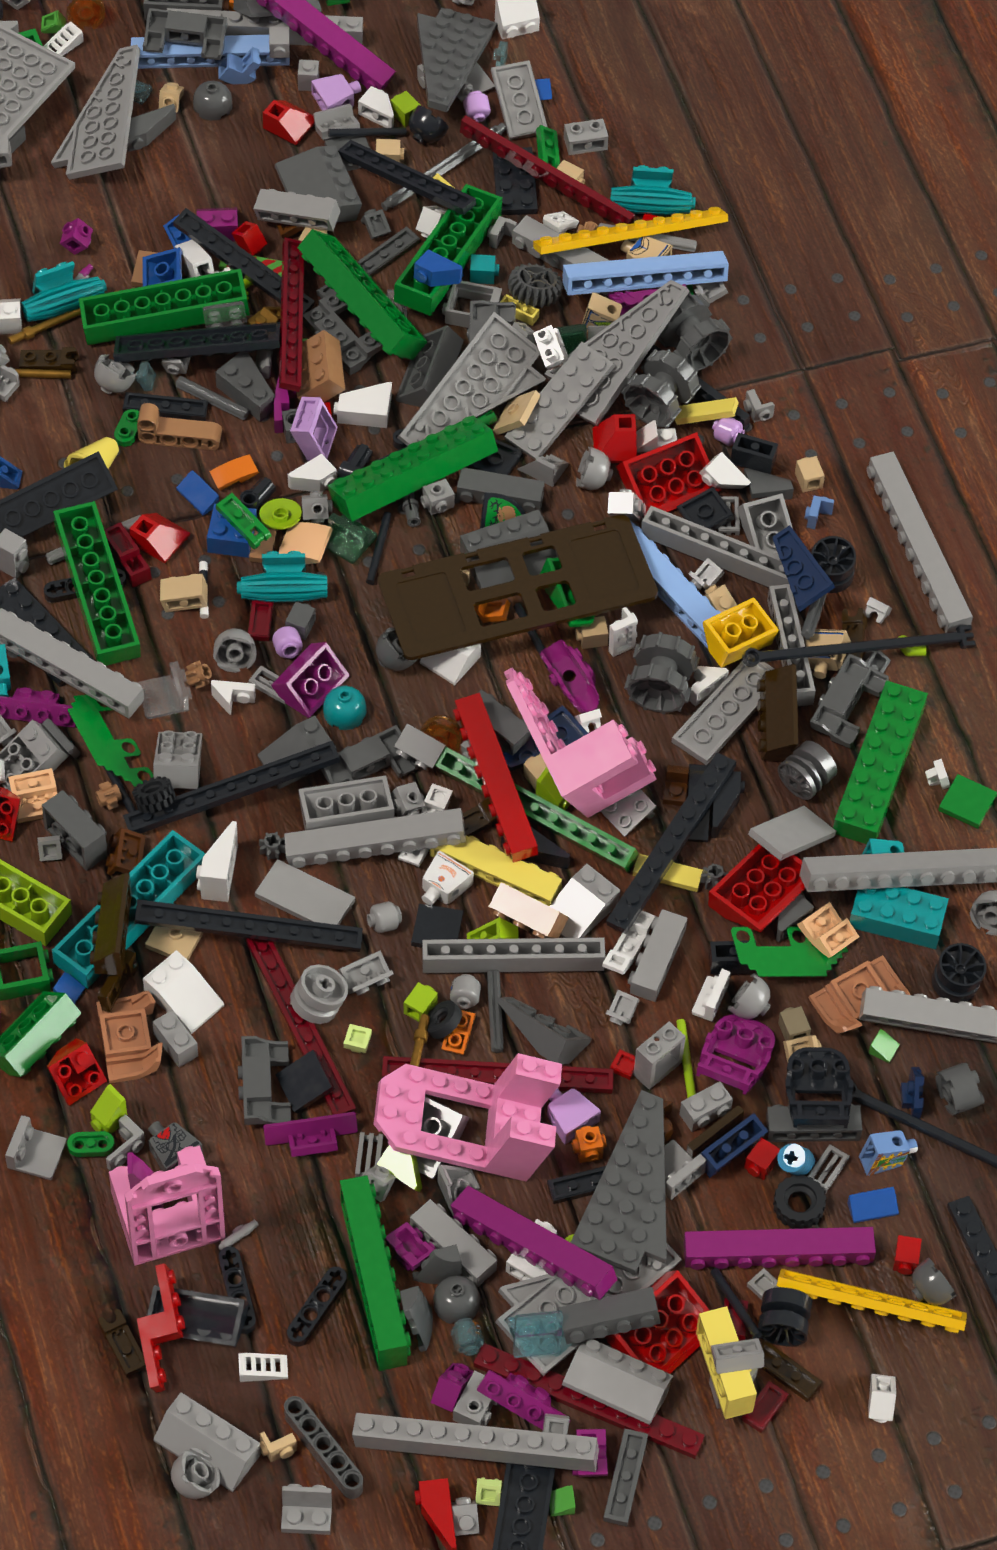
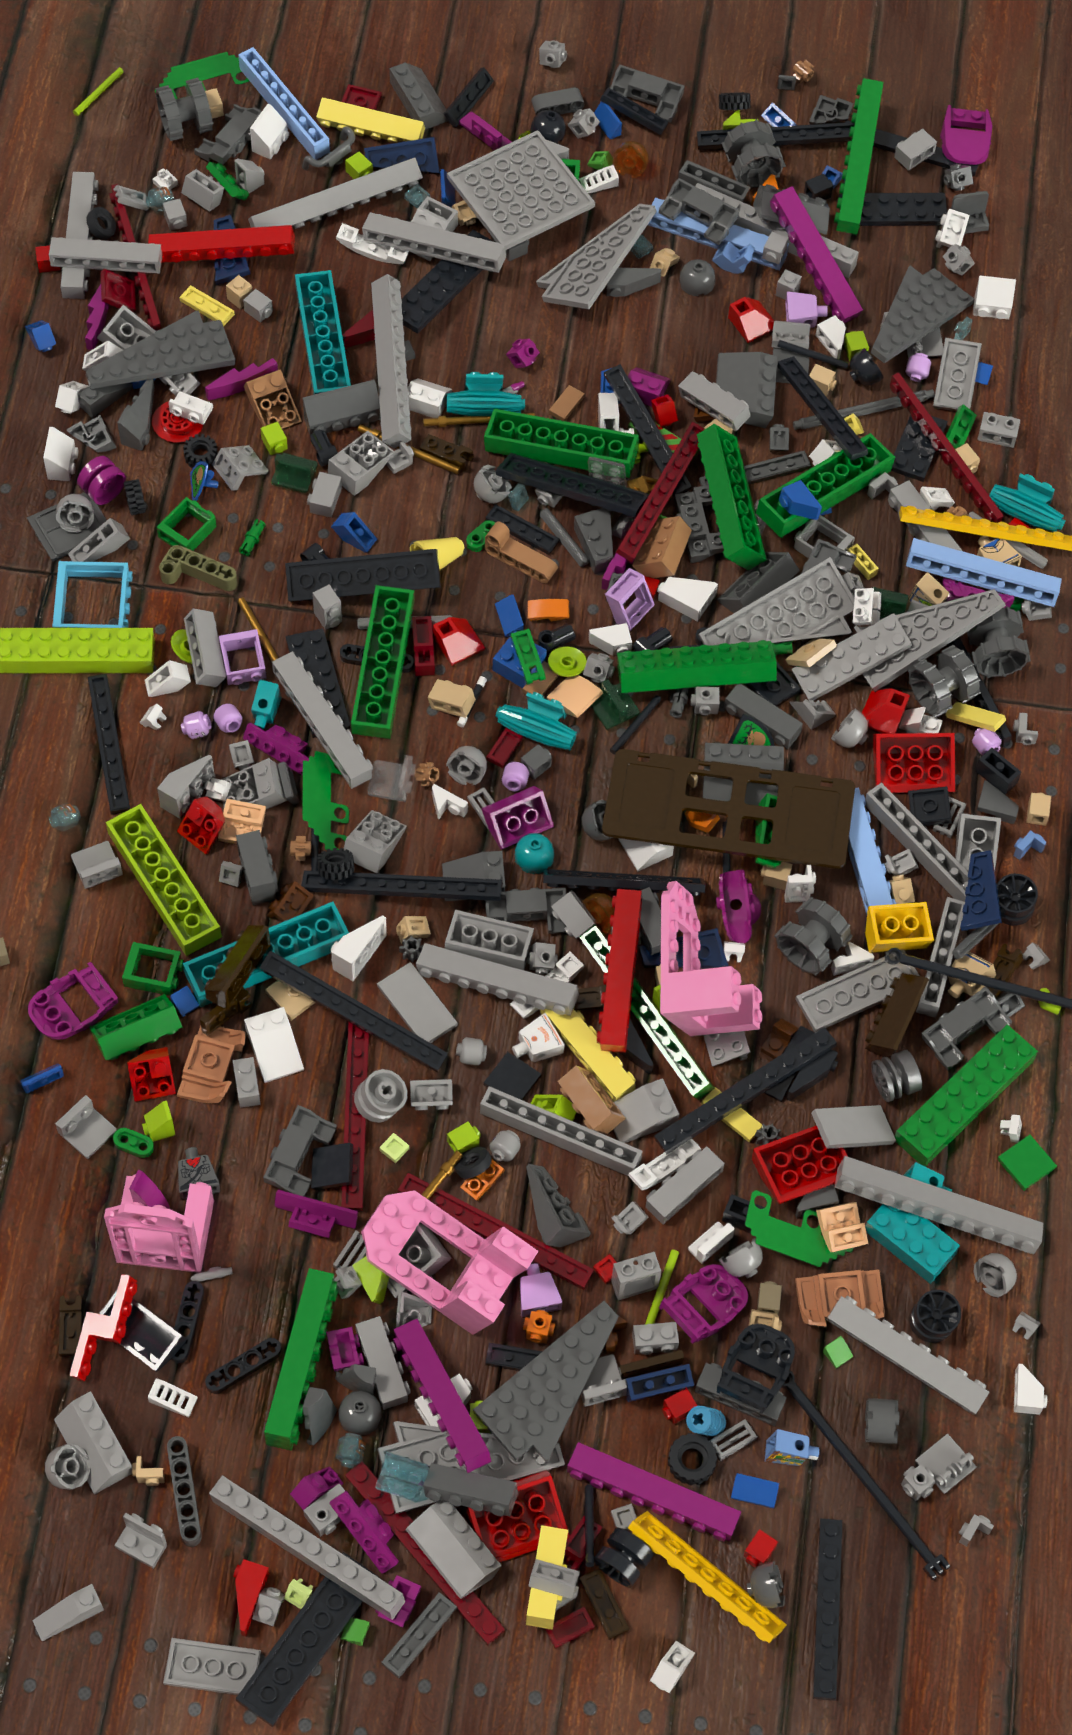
camera: 25 degrees right, 5 degrees up
(134, 1142) = (167, 1158): light grey bracket -> none
(162, 267) = (577, 408): blue slope -> none
(261, 824) = (413, 926): none -> tan bracket
(441, 700) = (619, 880): none -> black plate
(483, 269) = (849, 513): teal brick -> none
(495, 1011) = (522, 1175): dark grey axle -> none
(535, 285) = (885, 545): dark grey gear -> none
(555, 1423) = (380, 1564): light grey tile -> none
(626, 504) = (860, 773): brick -> none
(723, 474) = (960, 778): white slope -> none
(912, 1092) = (840, 1405): dark blue plate -> none

